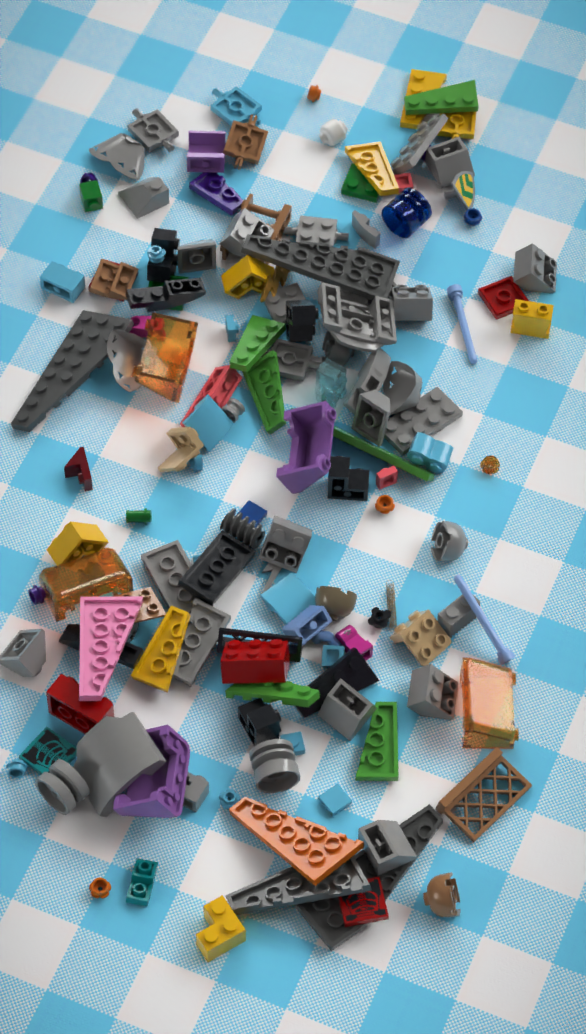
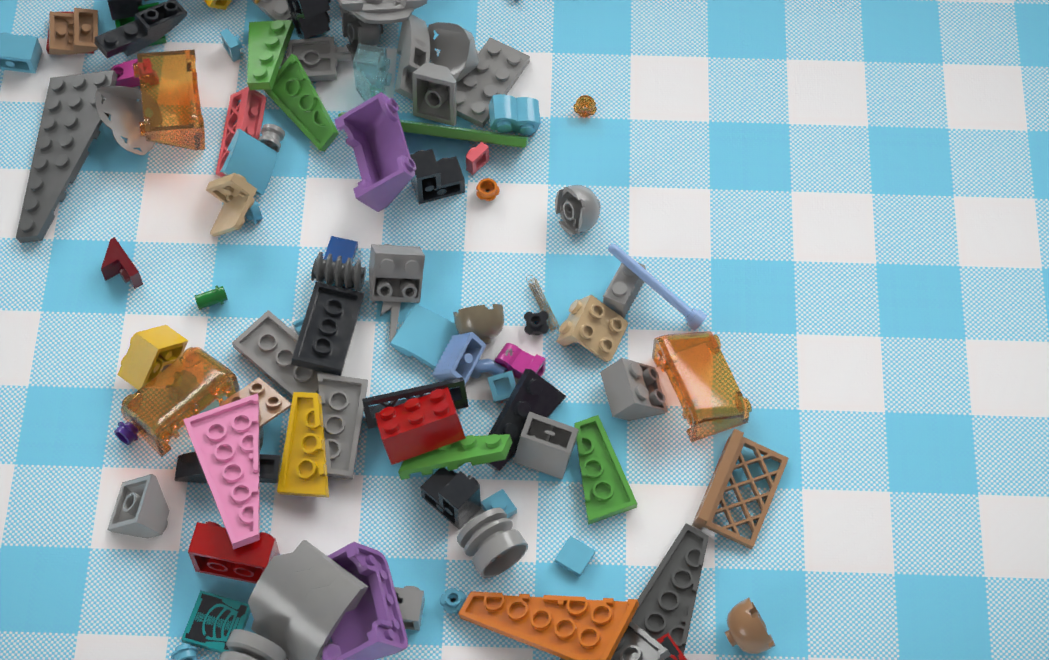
camera: 20 degrees left, 5 degrees up
(385, 845) = (661, 593): light grey slope -> none

